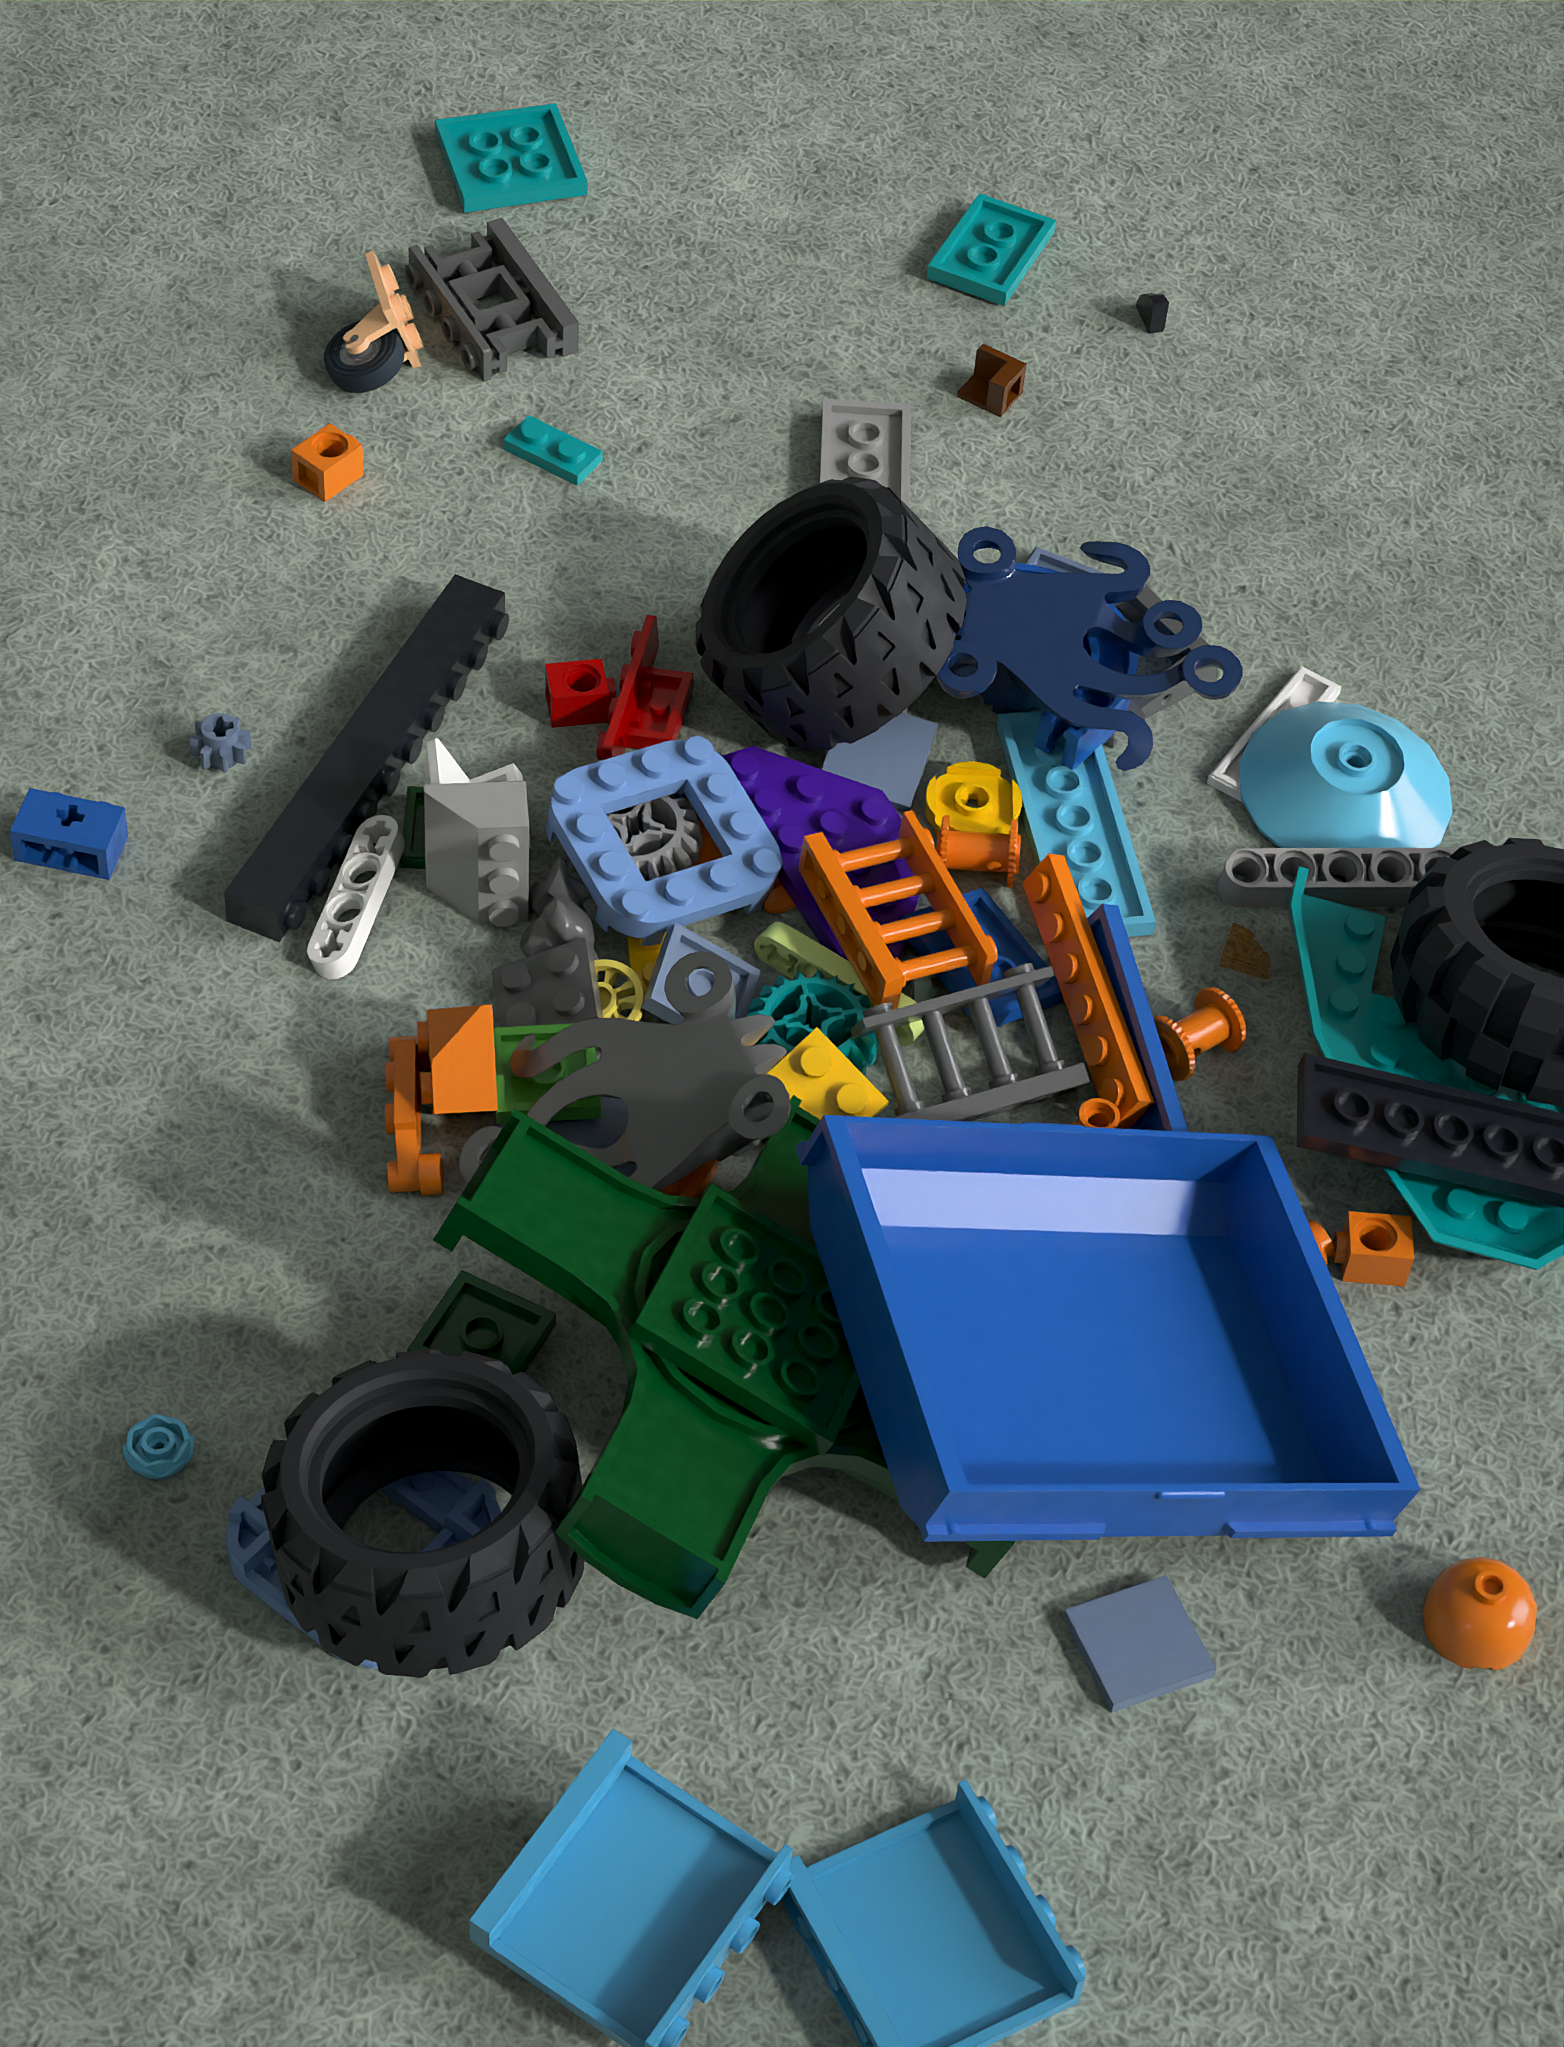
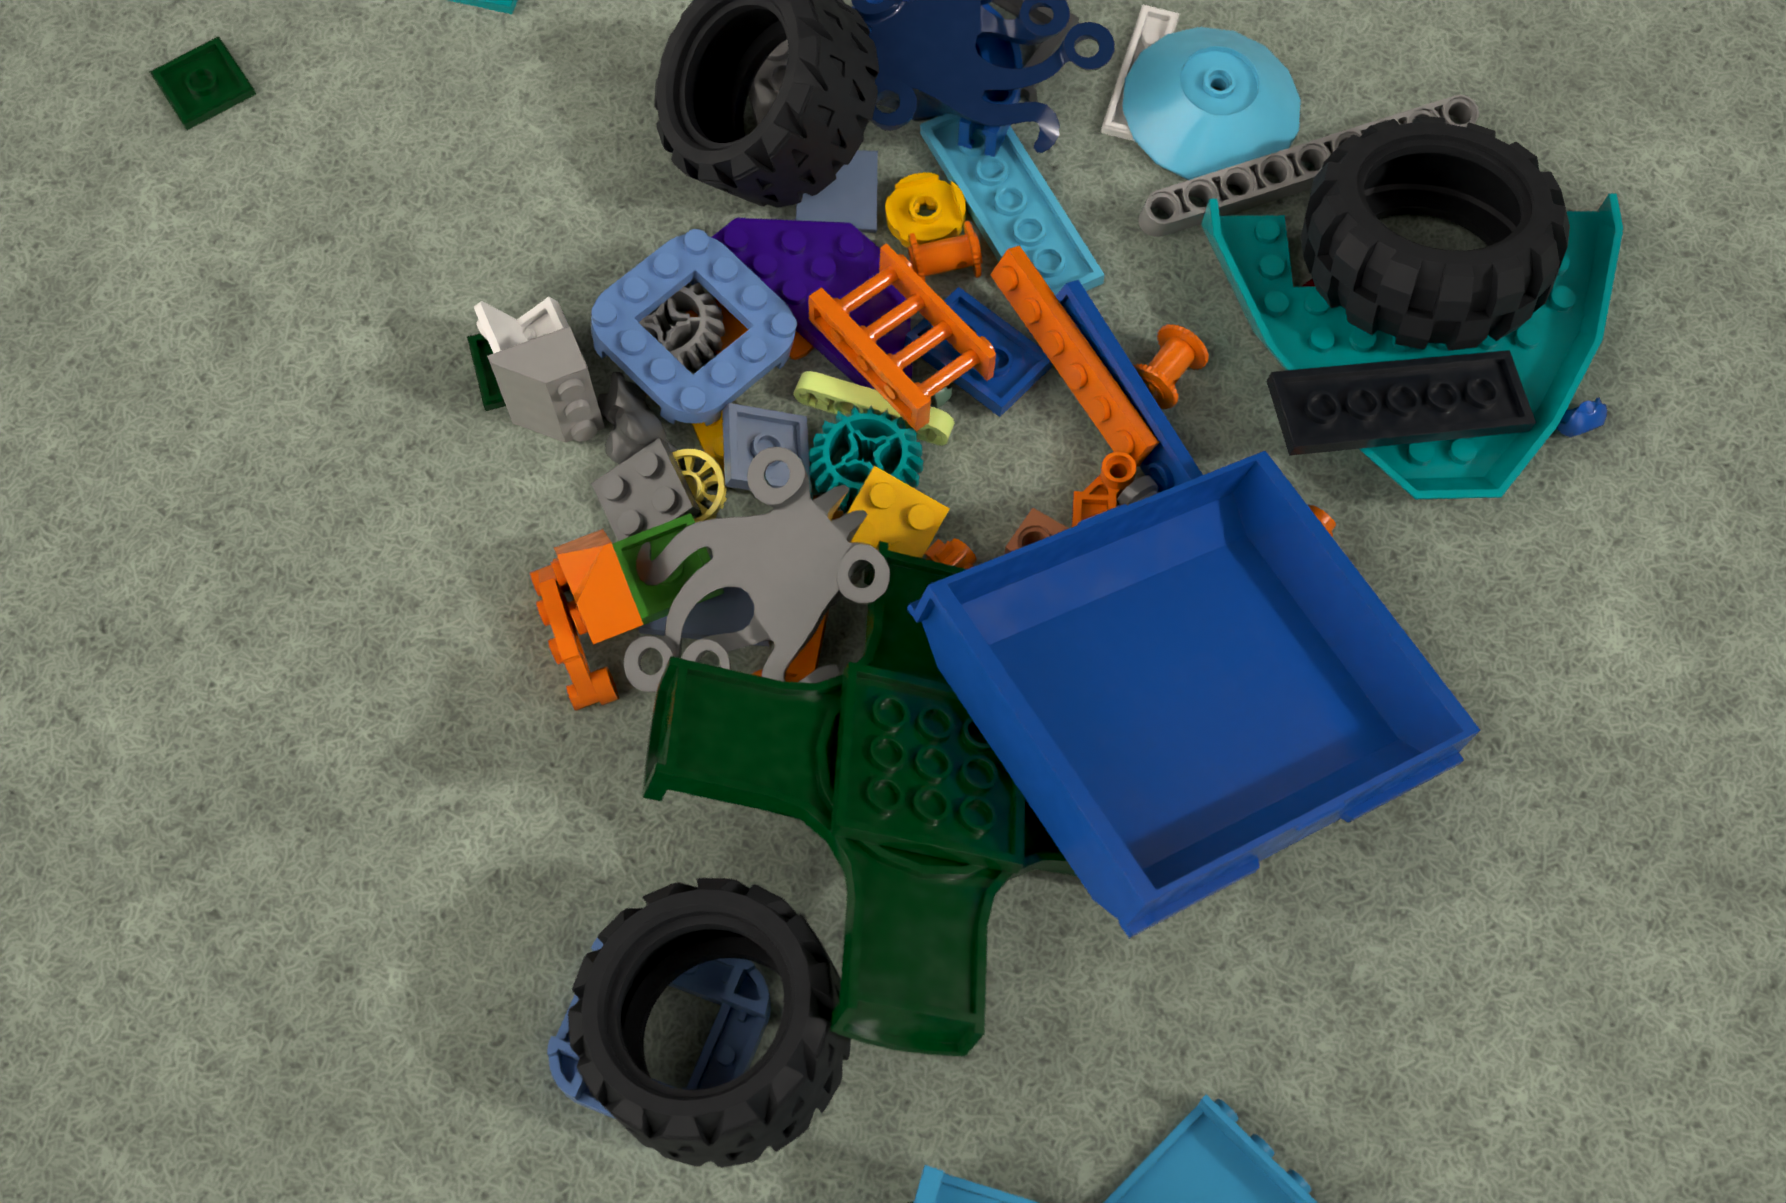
camera: 10 degrees left, 15 degrees up
(69, 833) = (205, 469): blue brick -> none
(156, 1433) = (458, 995): medium azure plate -> none
(209, 460) = (202, 83): none -> dark green tile
(220, 742) = (300, 345): sand blue gear -> none
(327, 462) = (301, 56): orange brick -> none
(348, 895) = (453, 453): white beam -> none
(366, 760) = (425, 324): black brick -> none
(486, 1322) = (691, 831): dark green plate -> none
(578, 692) = (563, 206): red brick -> none
(649, 701) = (639, 201): red bracket -> none
(1006, 1088) = (1036, 463): dark grey fence -> none
(1139, 1643) = (1293, 917): sand blue tile -> none
(1244, 953) = (1180, 278): clear orange tile -> none
(1375, 1248) = (1375, 499): orange brick -> none
(1480, 1613) = (1545, 806): orange cylinder -> none

